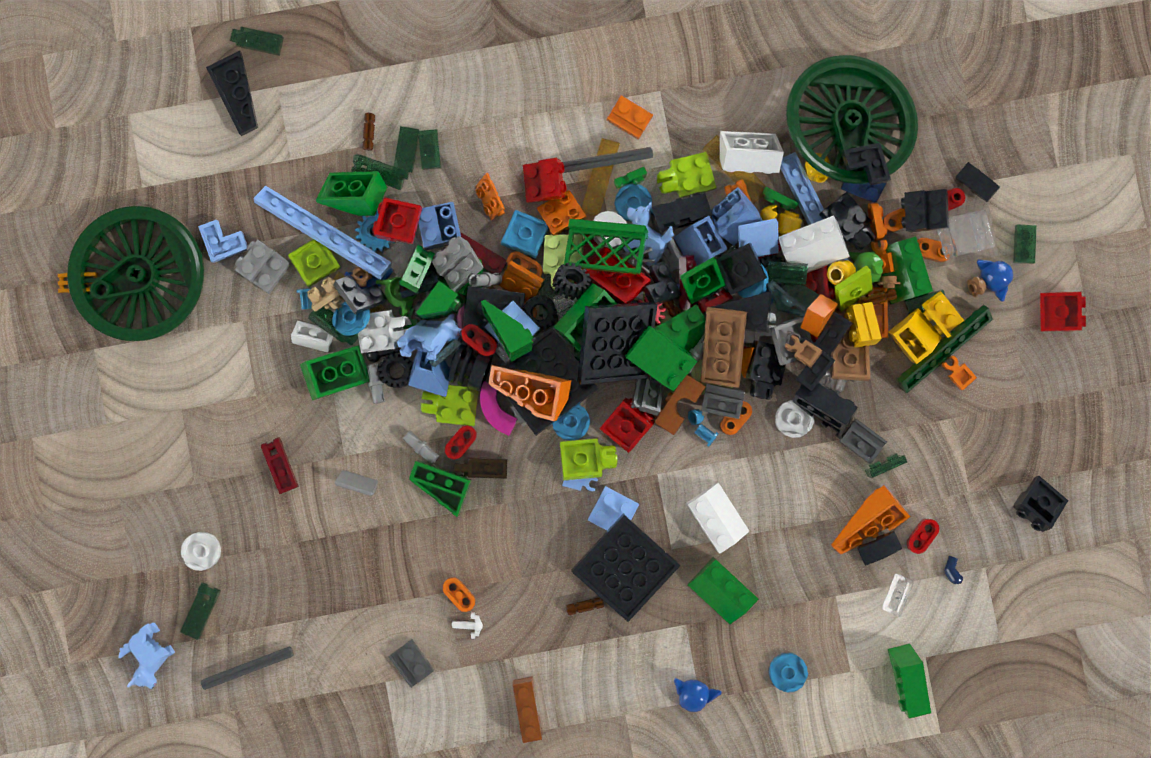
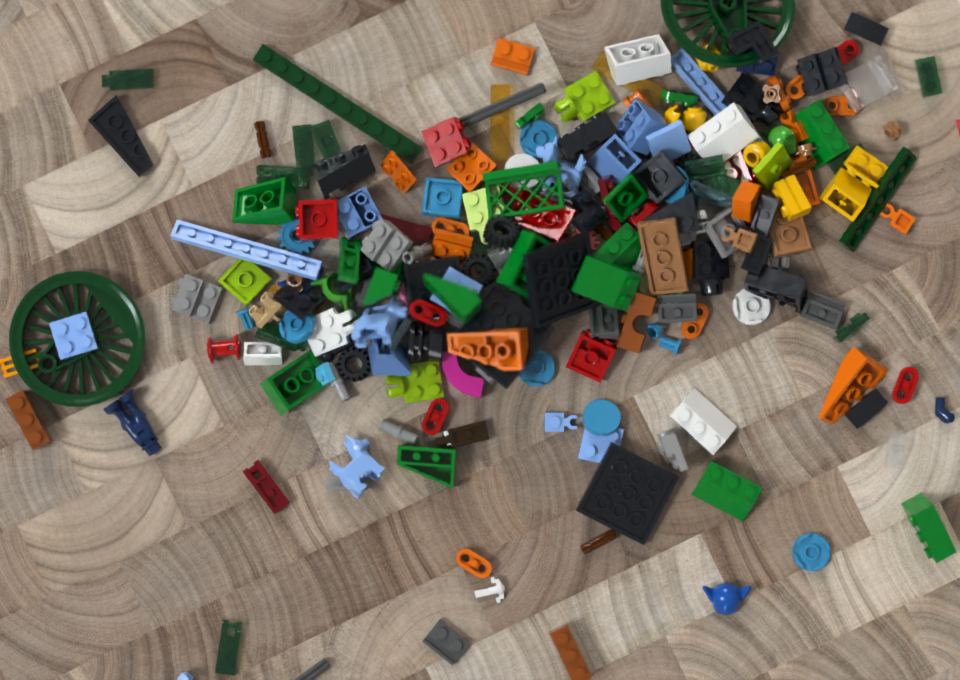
camera: 15 degrees left, 0 degrees up
(65, 327) = (31, 426): none -> dark orange arch
(131, 269) = (73, 335): none -> light blue plate
(171, 374) = (137, 426): none -> dark blue piece
(200, 551) = (212, 590): white tile -> none
(220, 246) = (150, 290): light blue plate -> none
(273, 321) = (221, 348): none -> red hose
(364, 372) = (324, 374): none -> medium azure plate
(372, 473) = (359, 468): none -> light blue animal
(436, 179) = (342, 169): none -> black wedge
(450, 117) = (337, 103): none -> dark green plate
(586, 459) = (561, 399): lime plate -> none
(620, 487) = (601, 417): none -> dark azure tile
(679, 535) = (668, 446): none -> light grey plate
(874, 223) = (776, 97): none -> medium nougat plate
(996, 276) = (908, 115): blue piece -> none

